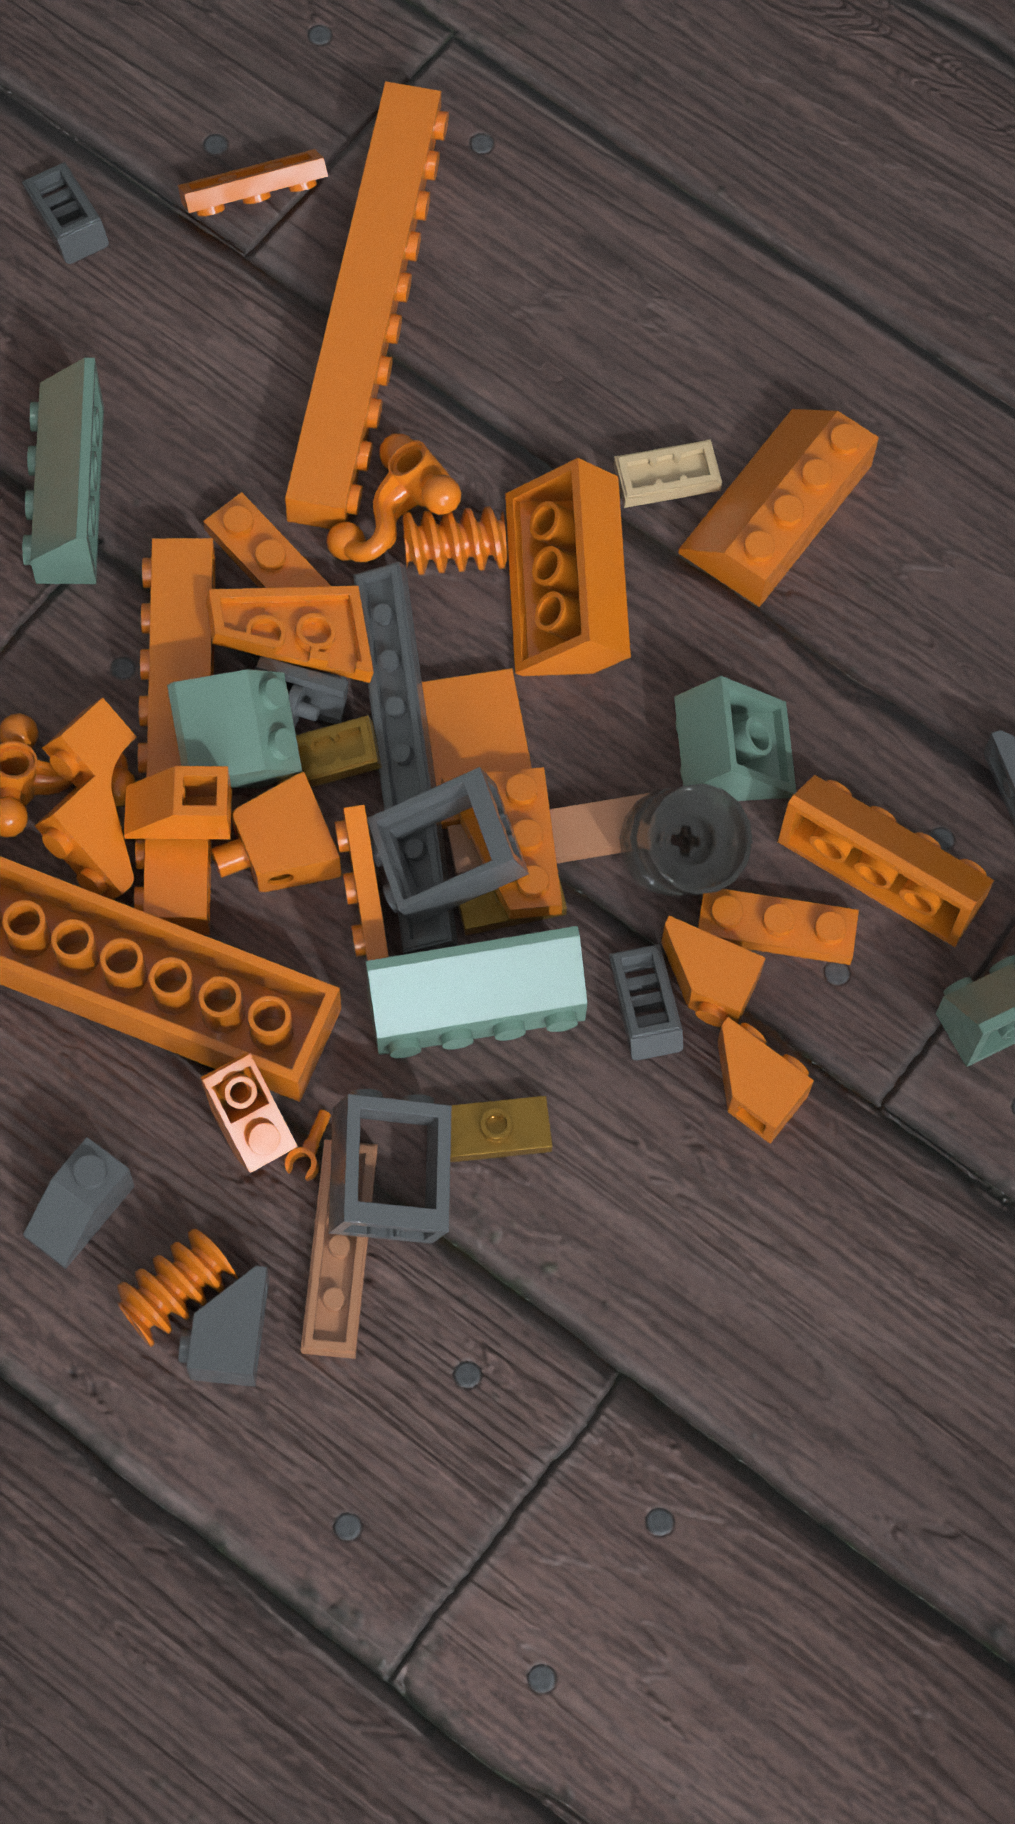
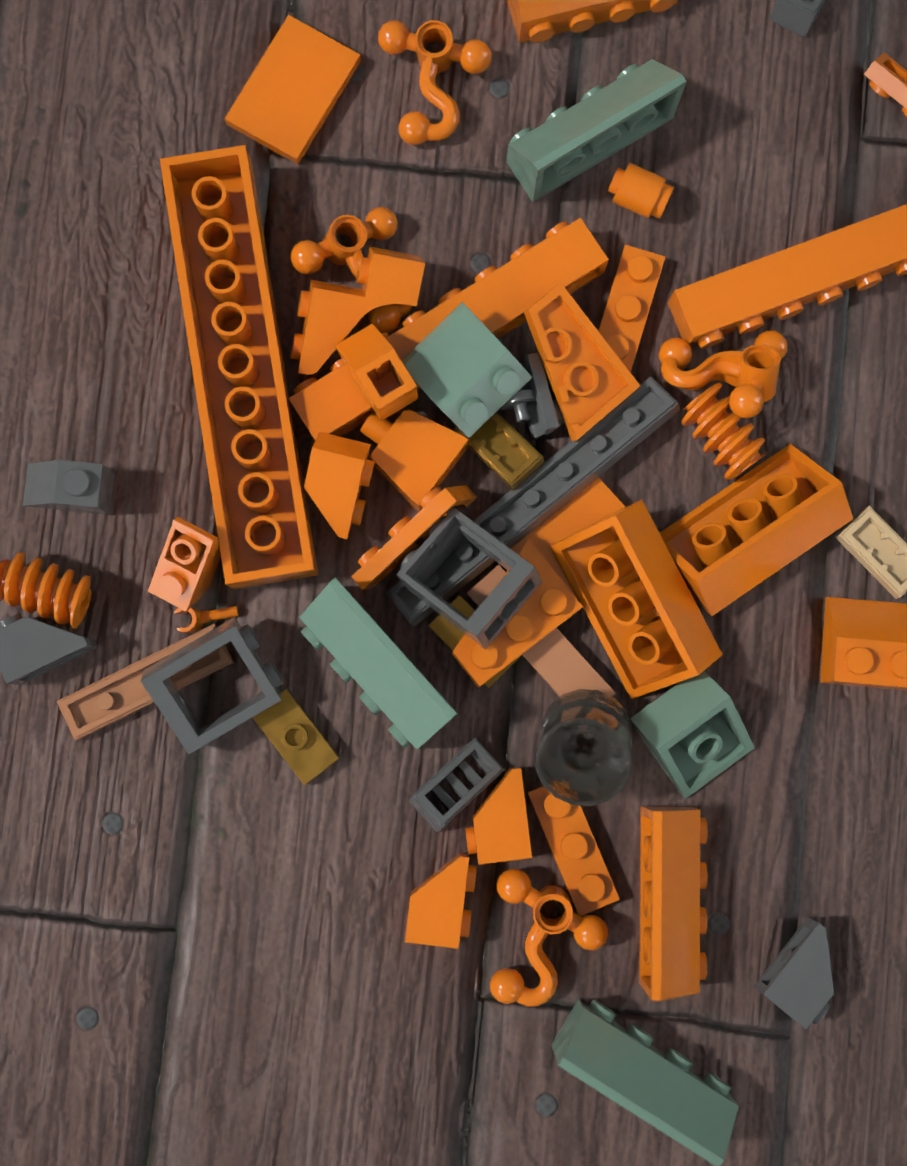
camera: 60 degrees right, 15 degrees up
(160, 474) = (640, 191): none -> orange brick
(258, 914) = (335, 480): none -> orange slope
(570, 716) = (637, 601): none -> orange slope
(873, 955) = (589, 933): none -> orange piece

